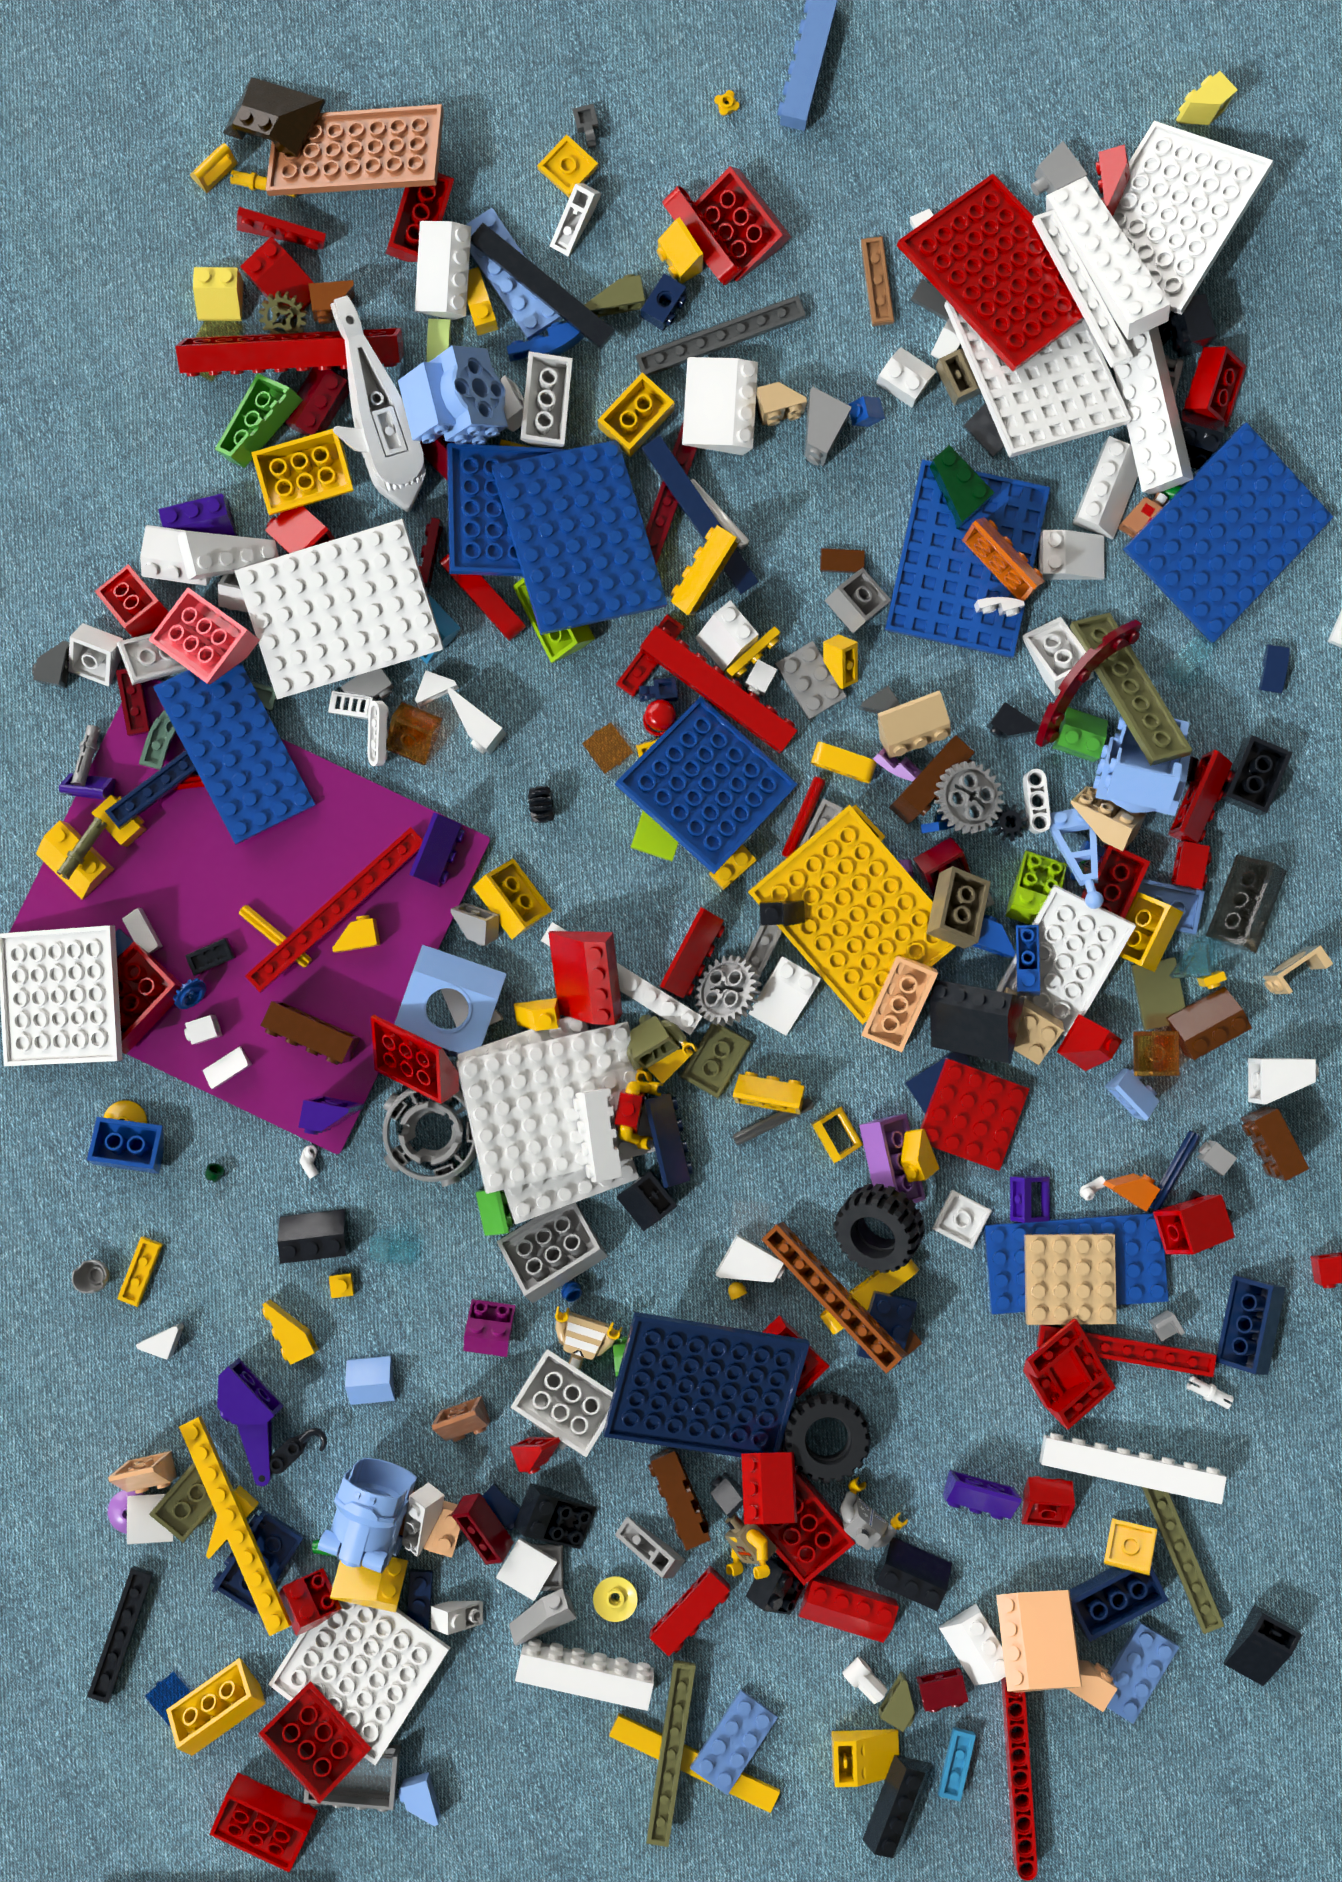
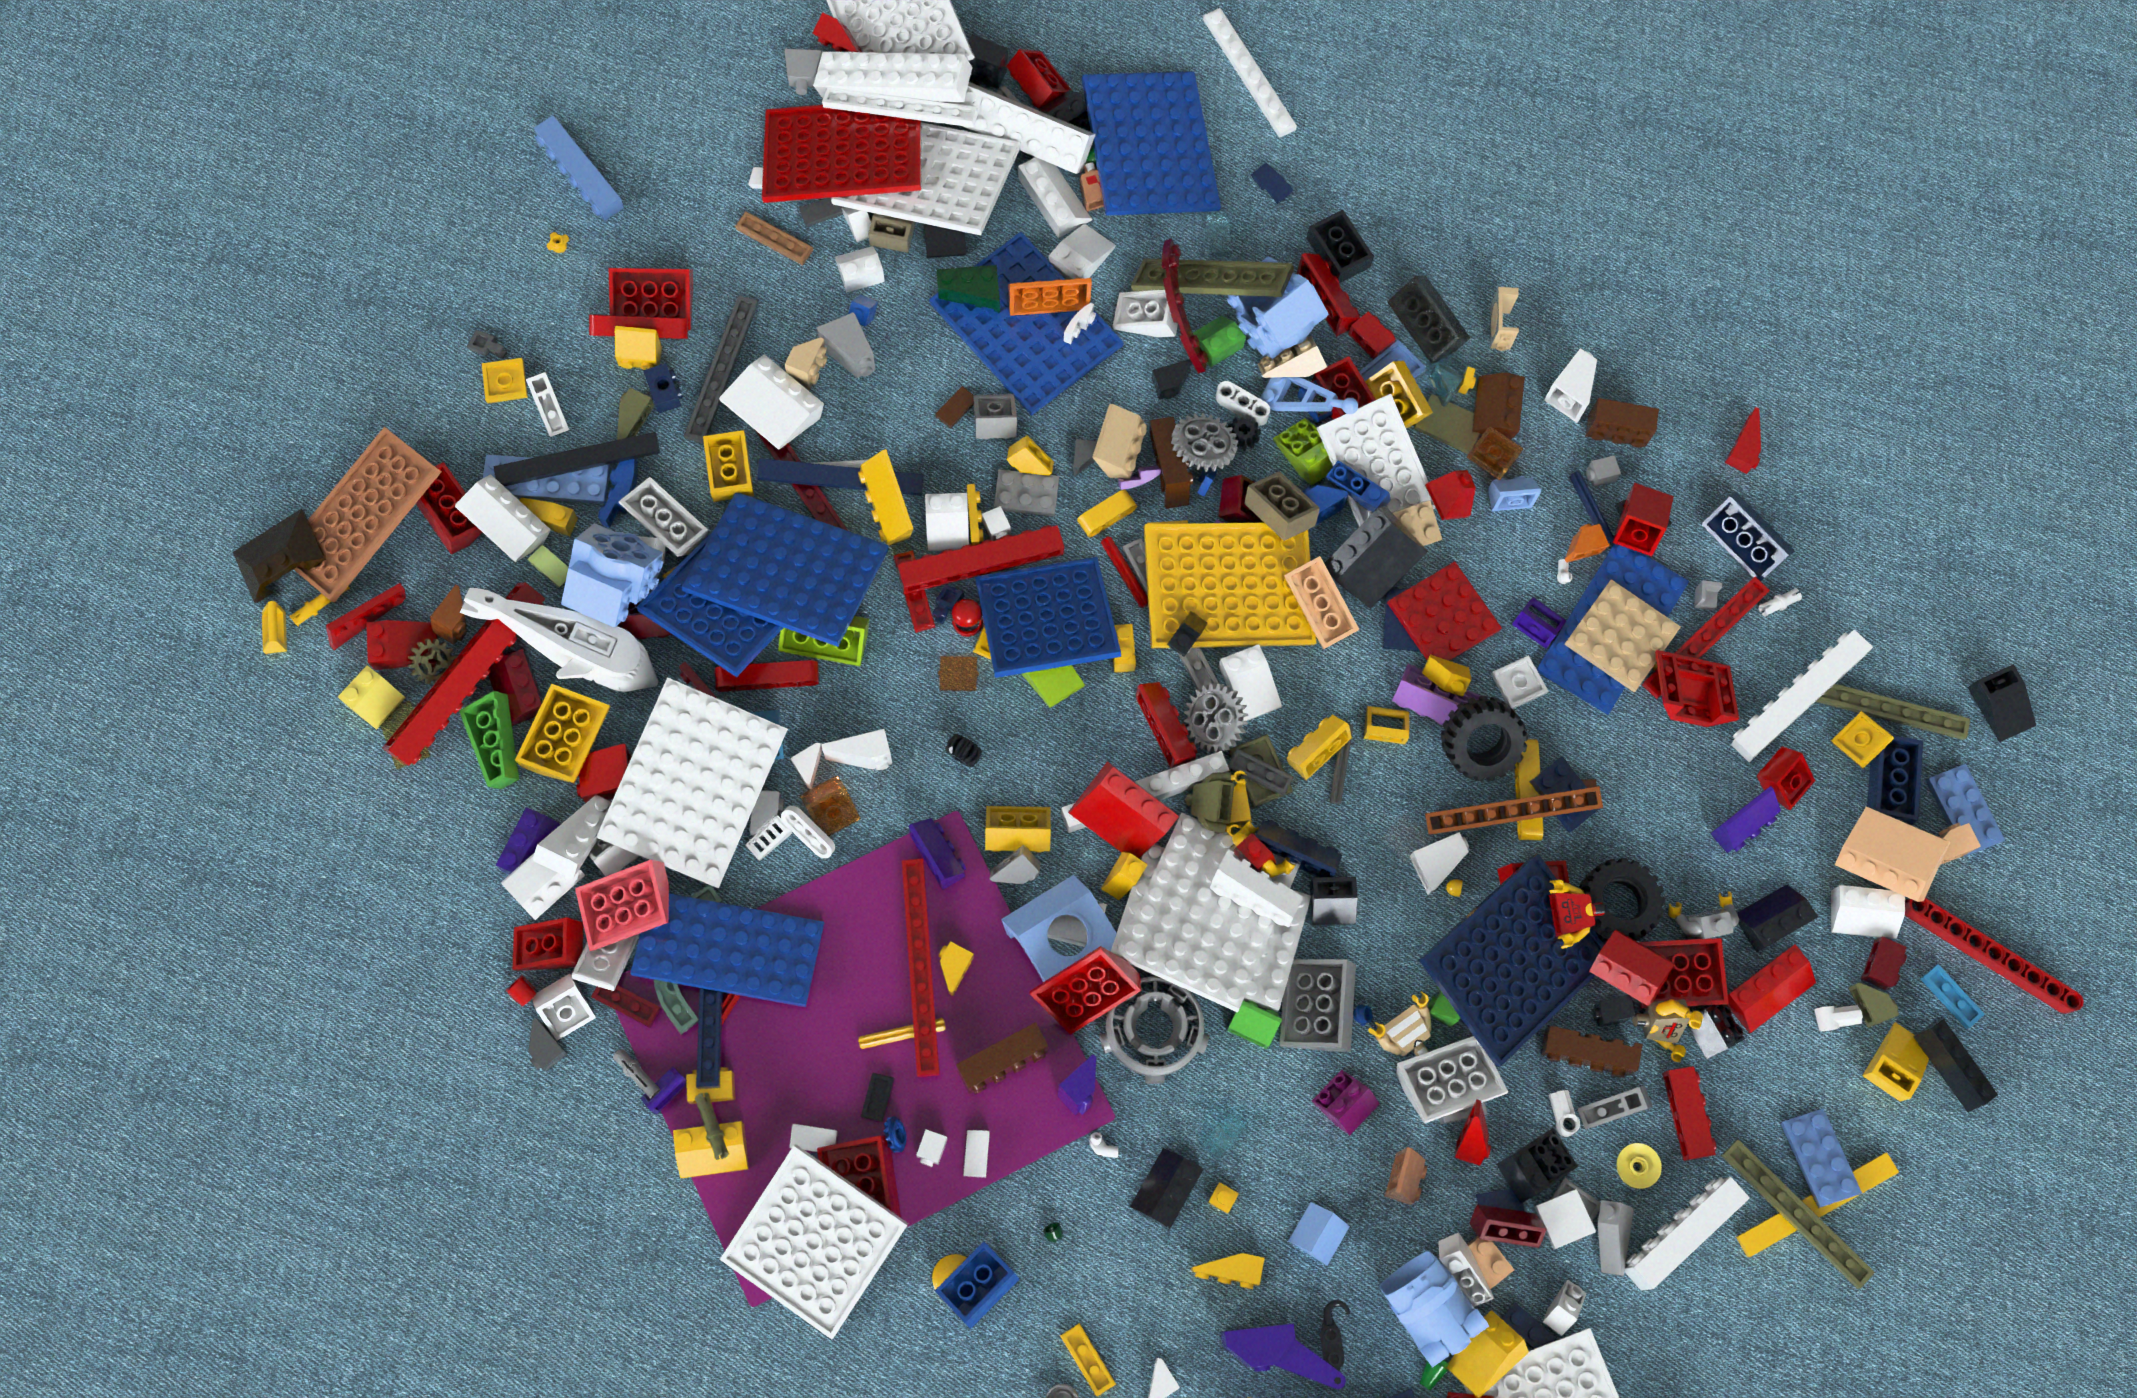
camera: 60 degrees left, 15 degrees down
(80, 613) = (521, 991): none -> red piece
(614, 1508) = (1564, 1110): none -> white piece
(711, 1060) = (1260, 772): none -> dark grey tile
(777, 1408) = (1572, 912): none -> torso

